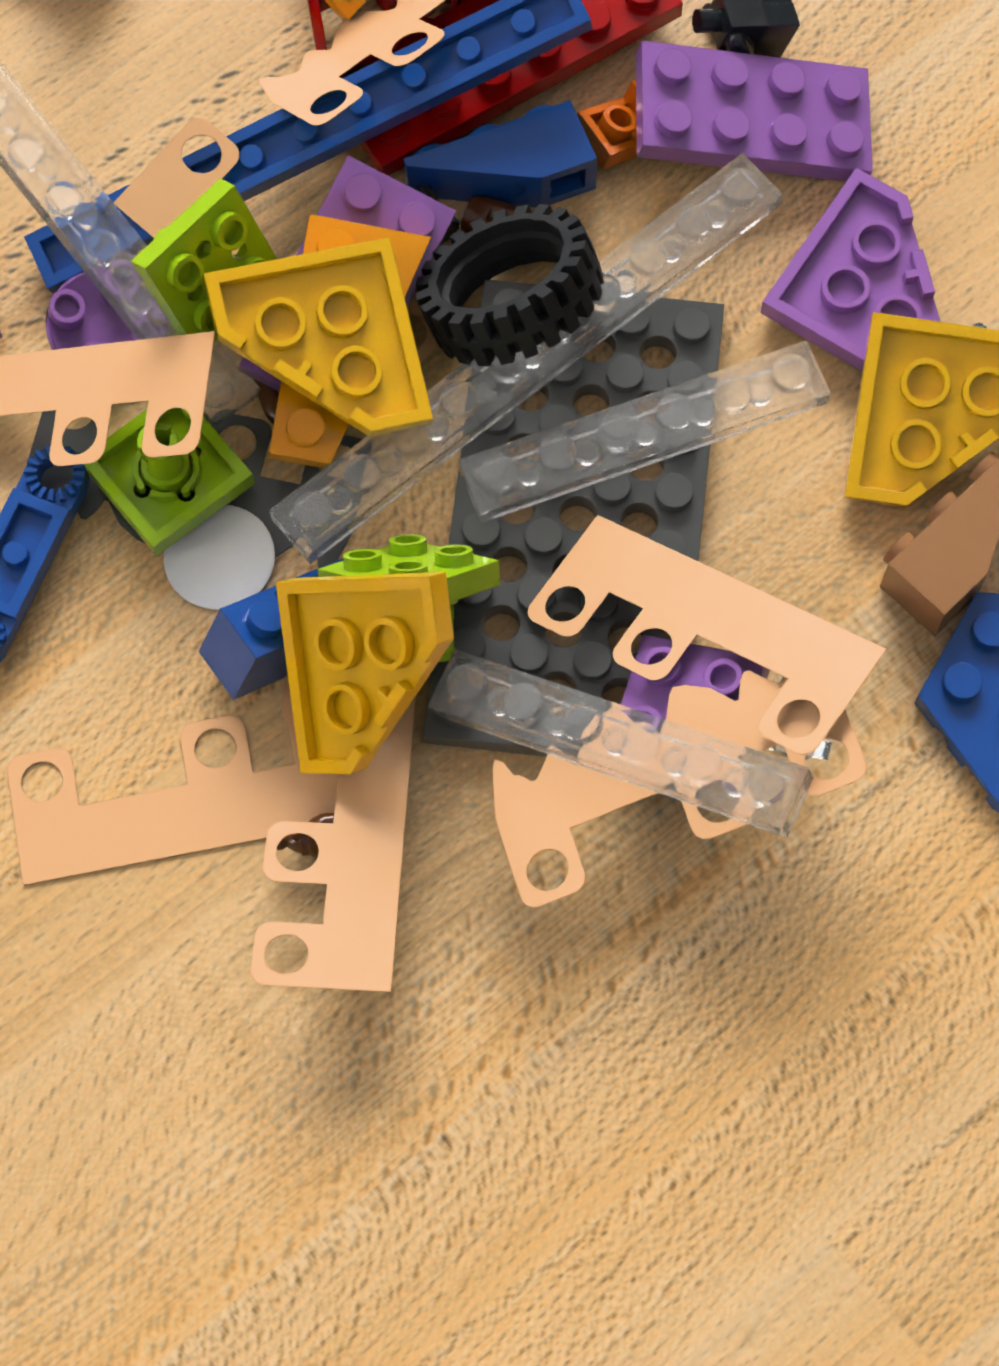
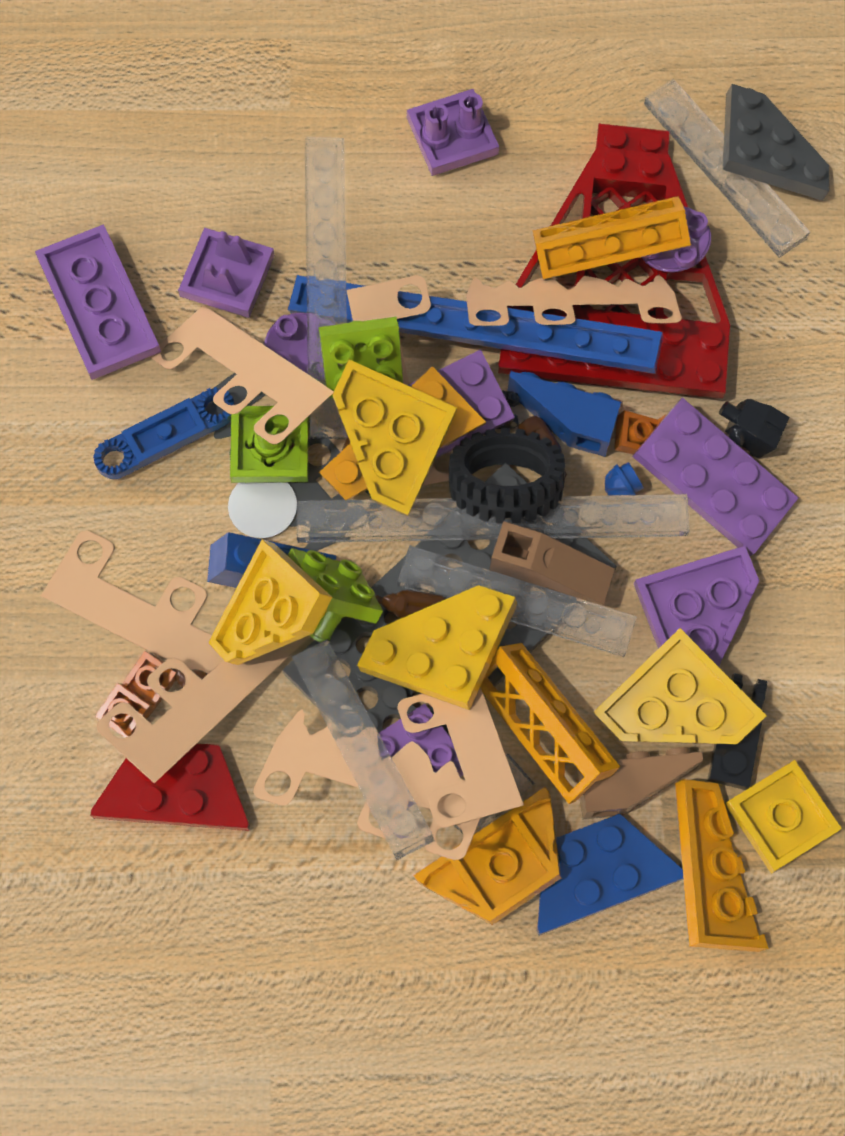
camera: 35 degrees right, 0 degrees up
(258, 901) = (136, 693): none -> orange slope
(441, 976) = (190, 793): none -> red wing
(531, 527) = (408, 602): none -> reddish brown piece
(609, 547) = (443, 646): none -> yellow plate
(646, 196) = (622, 481): none -> blue plate
(649, 353) = (550, 564): none -> medium nougat slope
(814, 524) = (556, 714): none -> light orange fence
(914, 754) = (503, 863): none -> light orange wing

